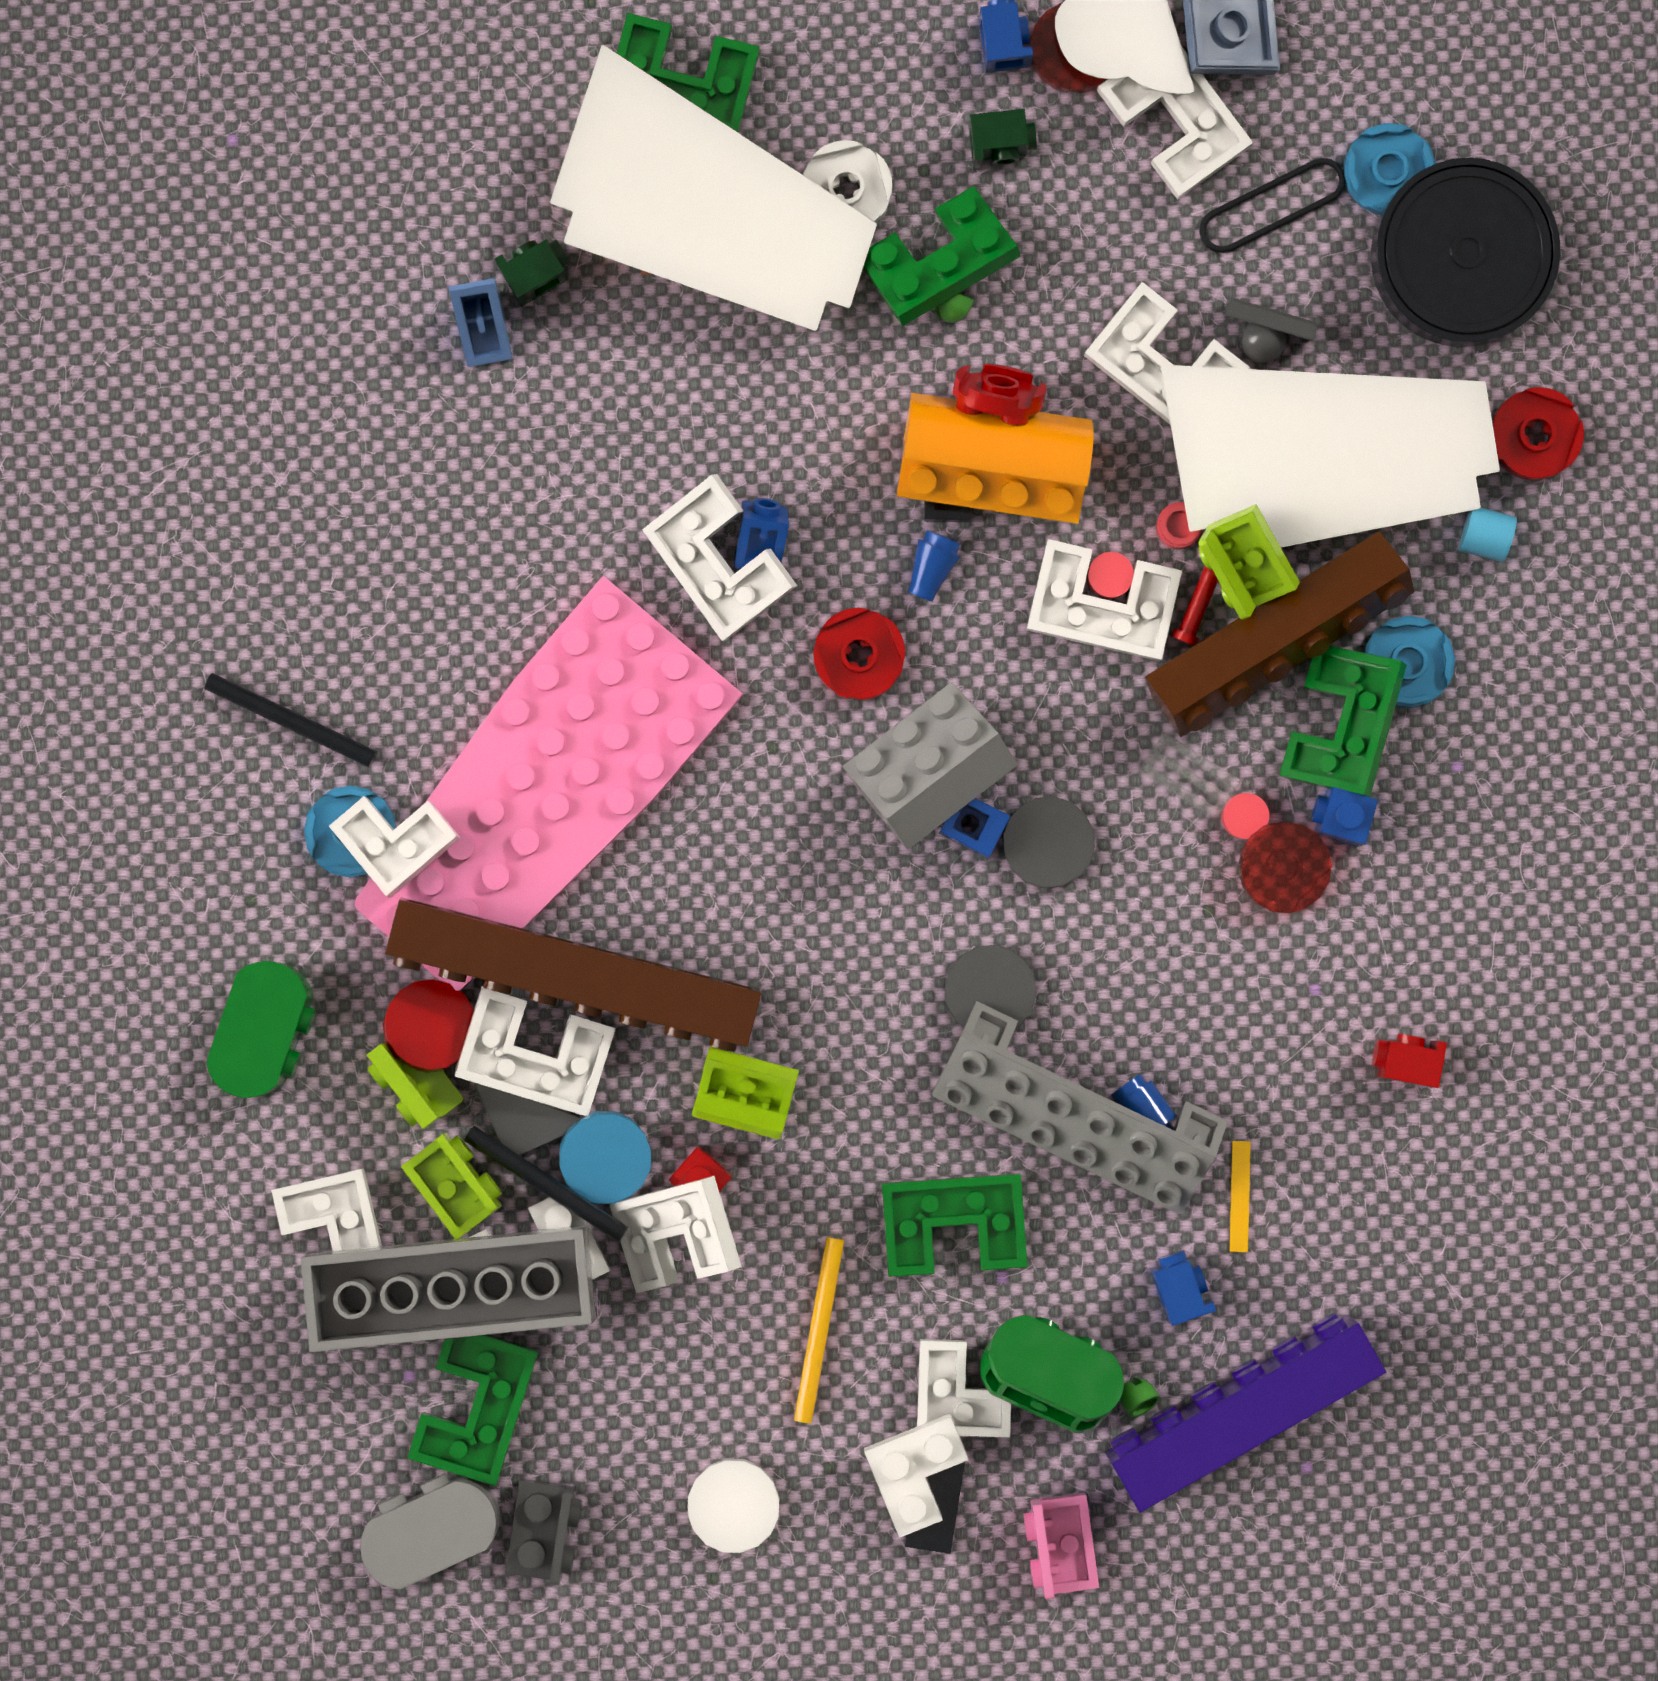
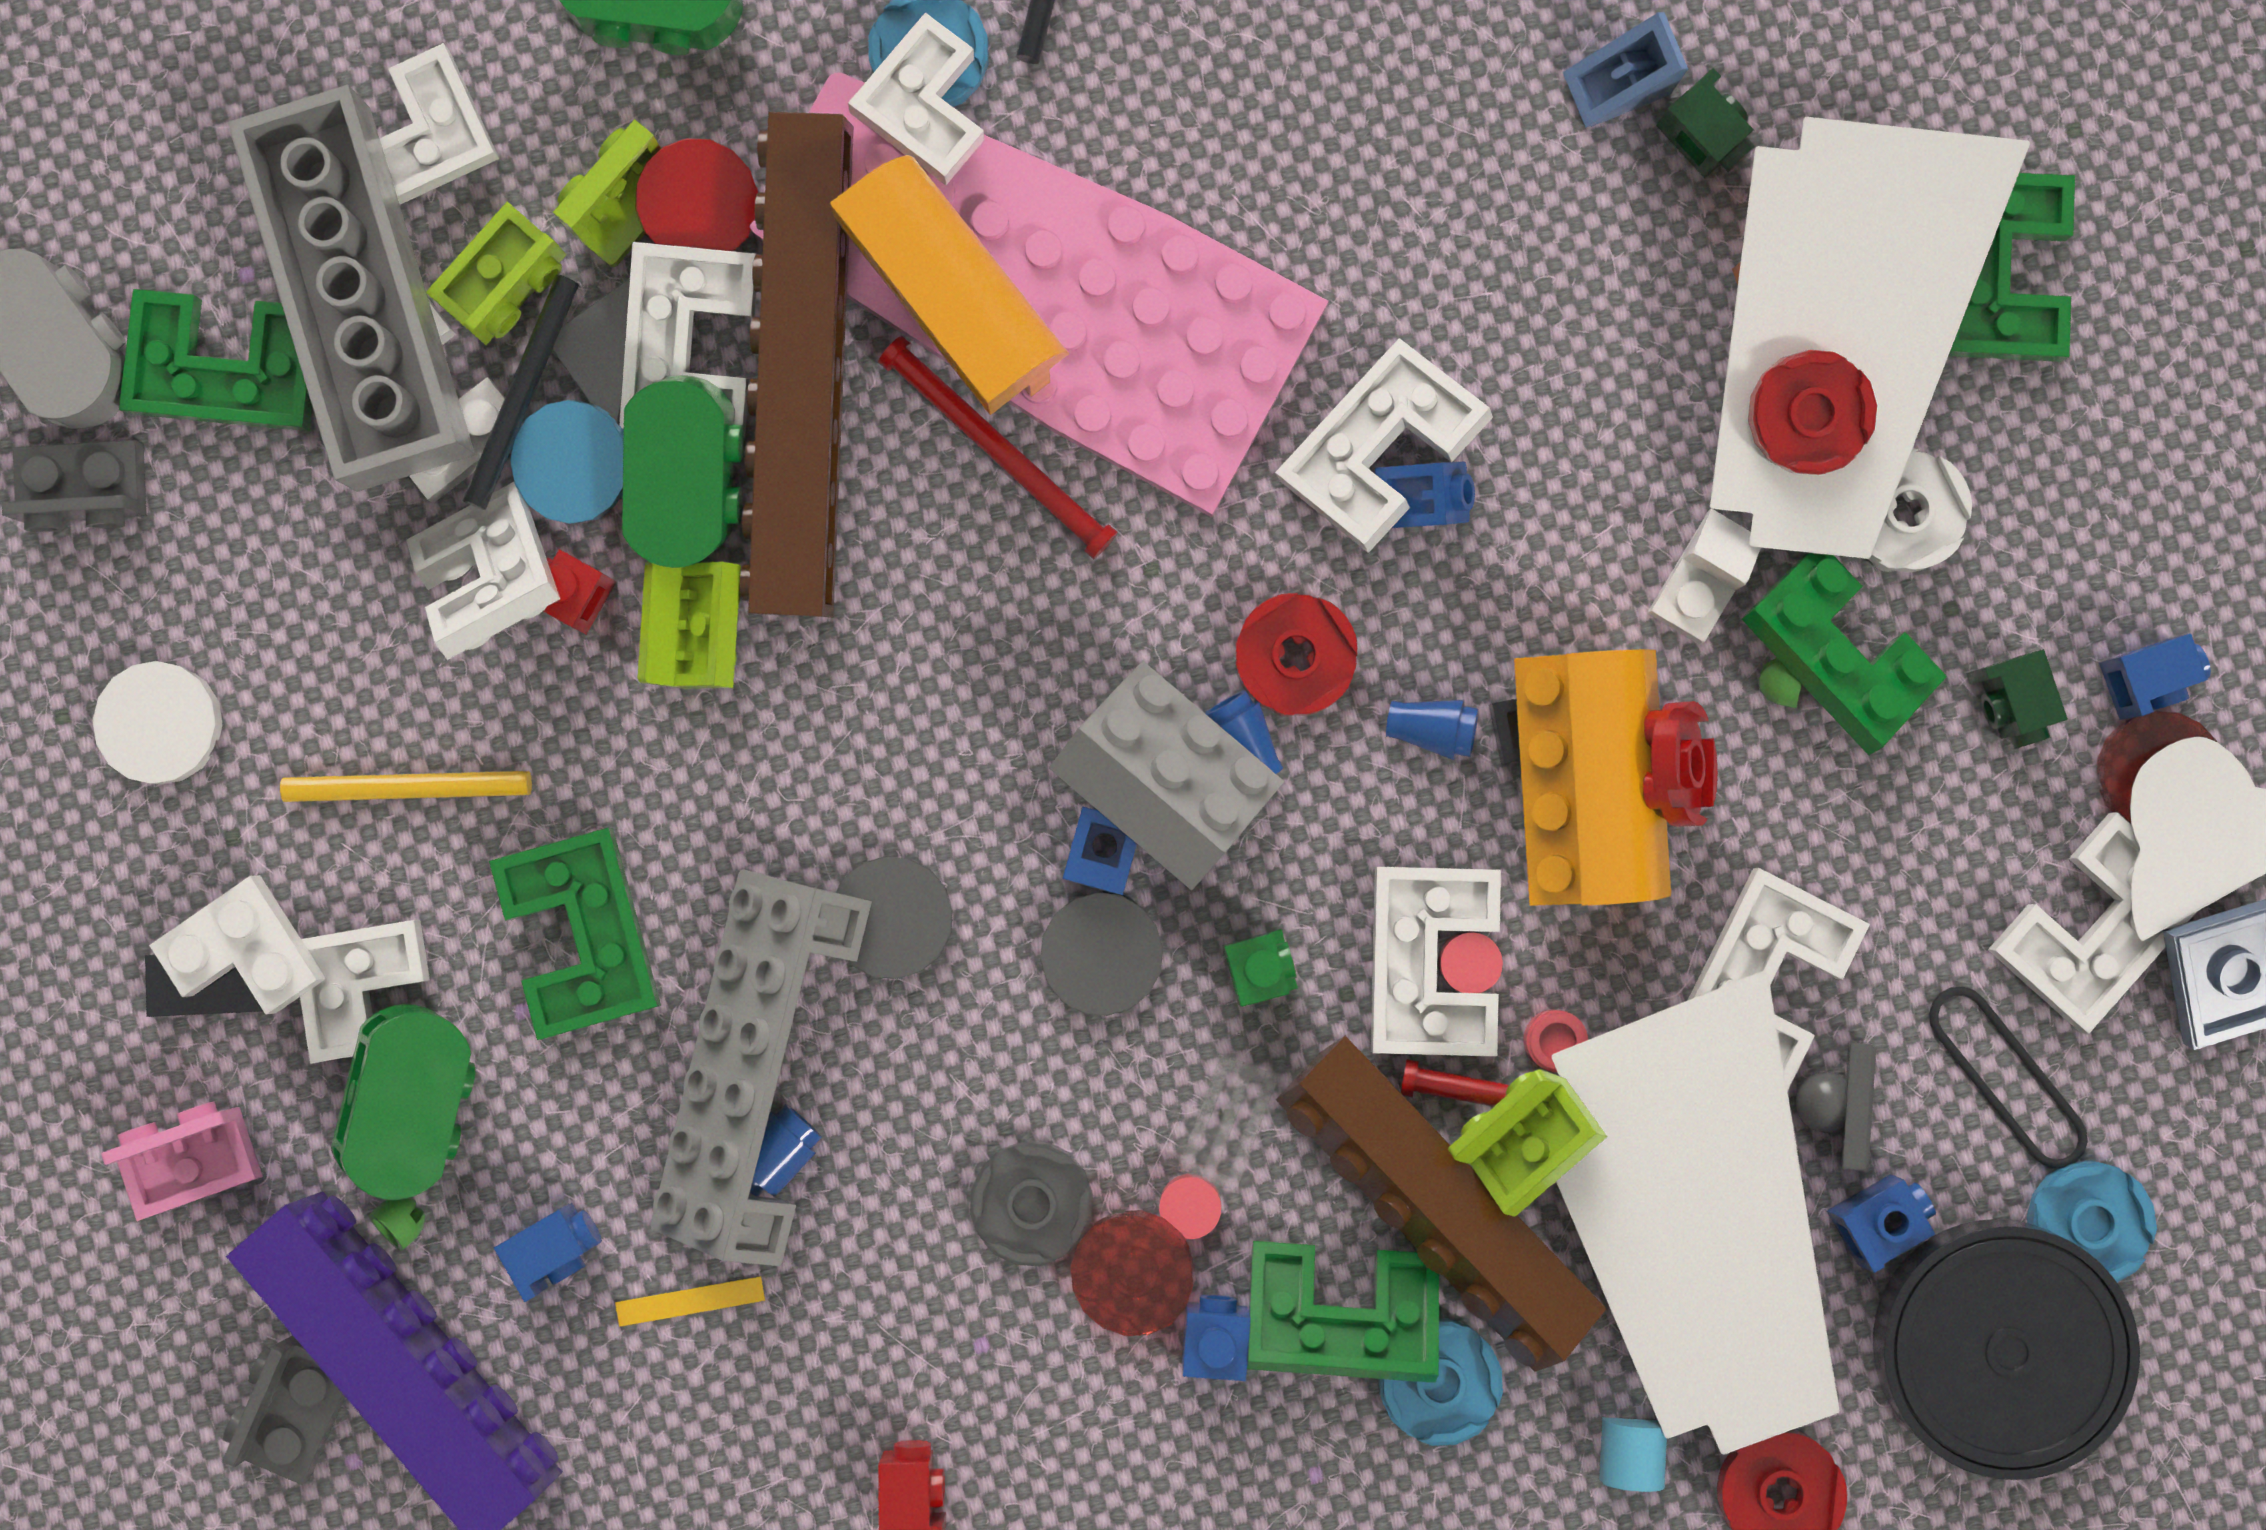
camera: 75 degrees right, 0 degrees up
(541, 846) = (948, 282): none -> light orange brick
(631, 1075) = (680, 471): none -> green brick
(659, 841) = (993, 443): none -> red bar
(764, 243) = (1812, 412): none -> red tile
(864, 343) = (1705, 577): none -> white slope
(902, 701) = (1248, 726): none -> blue cone
(1082, 728) = (1260, 967): none -> green brick
(1219, 931) = (1031, 1203): none -> dark grey tile
(1259, 1502) = (285, 1415): none -> dark grey bracket
(1356, 334) = (1863, 1216): none -> blue brick

